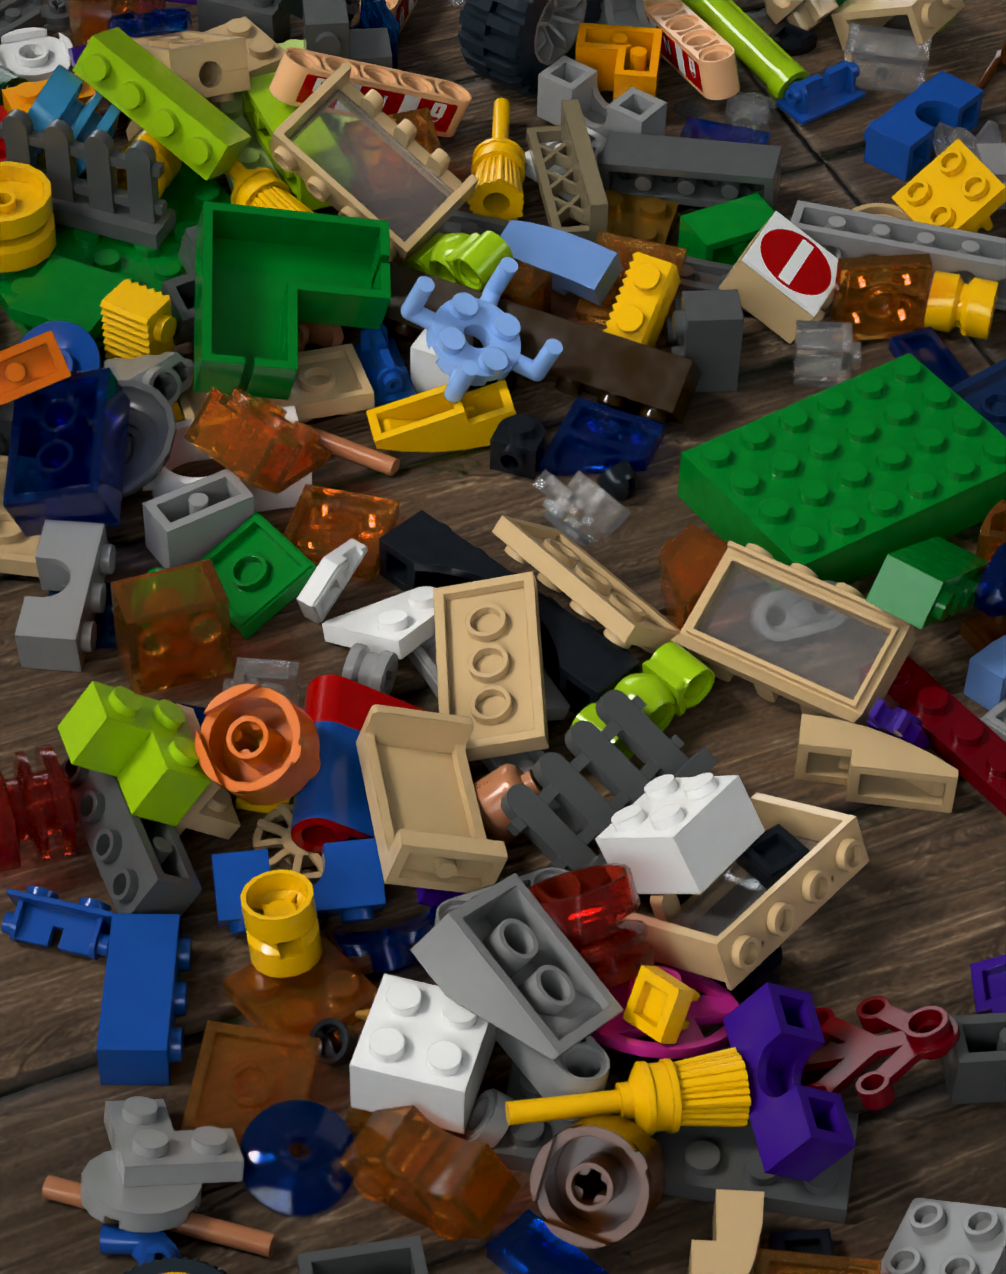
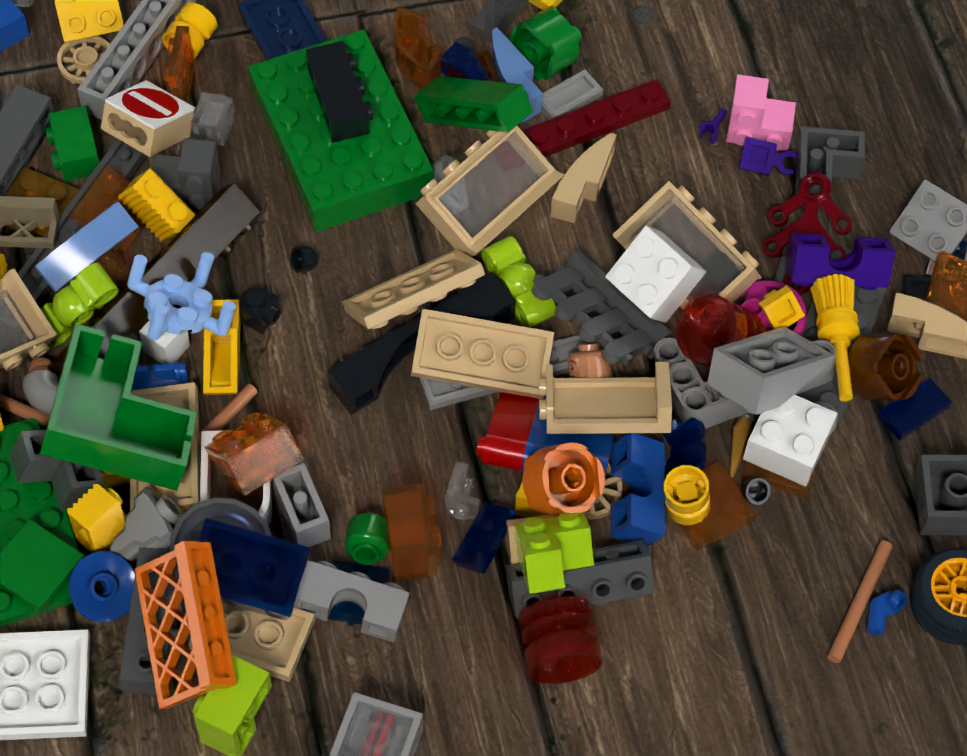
camera: 80 degrees left, 15 degrees up
(41, 913) = (629, 641): blue hinge -> none
(136, 1208) = (852, 603): light grey tile -> none
(143, 1000) = (709, 589): blue brick -> none
(156, 1155) = (830, 593): light grey plate -> none
(246, 1072) = (781, 538): clear orange plate -> none
(258, 573) = (349, 483): green tile -> none
(291, 1184) = (832, 521): clear blue dish -> none
(330, 517) = (321, 426): clear orange plate -> none
(330, 579) = (374, 435): white tile -> none
(370, 668) = (457, 428): light grey wheel -> none
(388, 625) = (412, 408): white wing -> none
(430, 1174) = (857, 454): clear orange brick -> none
(580, 508) = (334, 282): clear brick -> none
(599, 438) = (263, 259): clear blue wing -> none
(686, 570) = (409, 234): clear orange slope -> none
(772, 856) = (677, 230): black tile -> none
(882, 426) = (339, 91): none -> black brick
(897, 723) = (564, 155): dark purple plate -> none
(931, 352) = (227, 65): clear blue tile -> none

